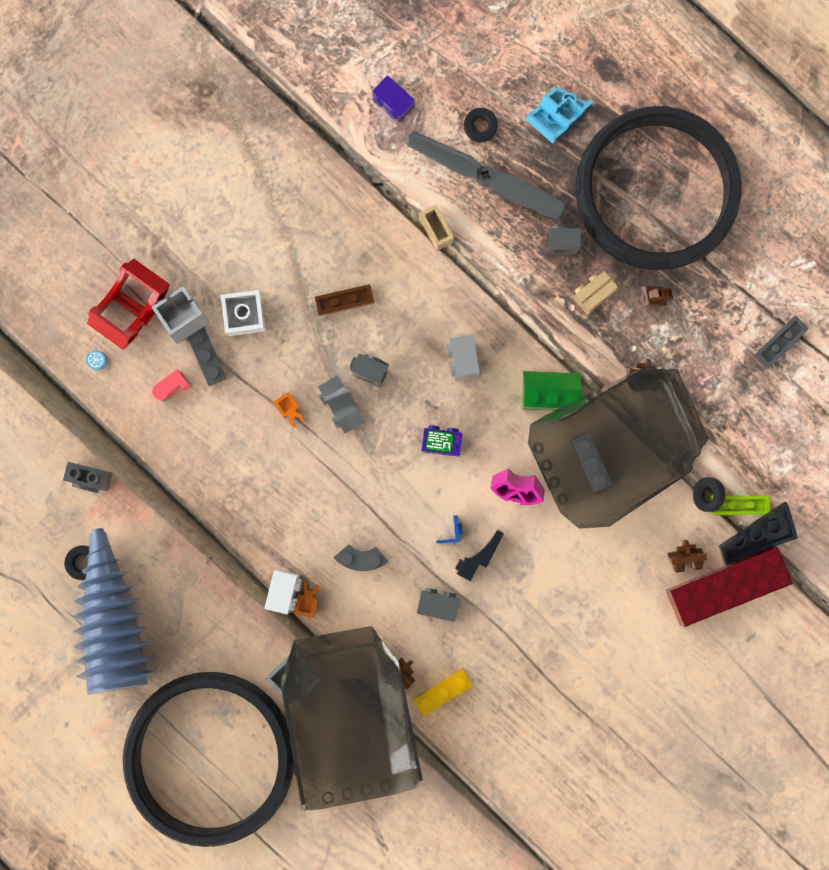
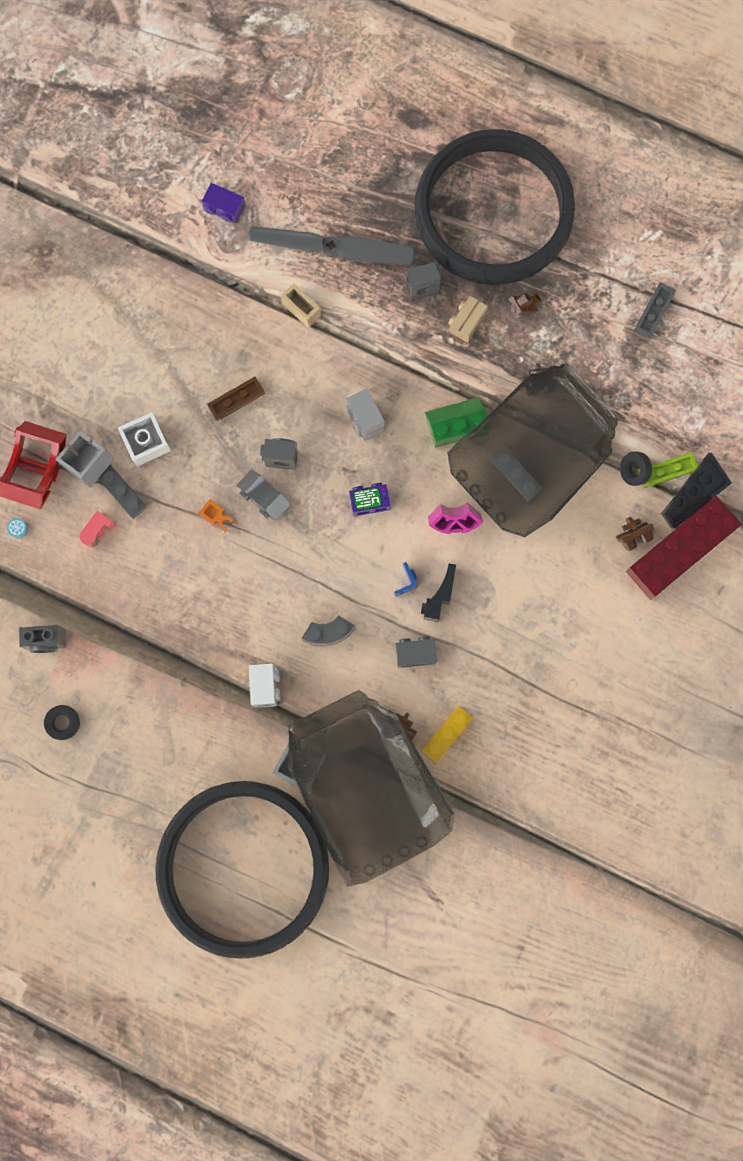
camera: 15 degrees left, 5 degrees down
(109, 624) = (106, 771): sand blue cone -> none
(306, 603) = (290, 692): orange plate -> none
(485, 114) = (312, 191): black tyre -> none
(558, 113) = (380, 170): medium azure slope -> none

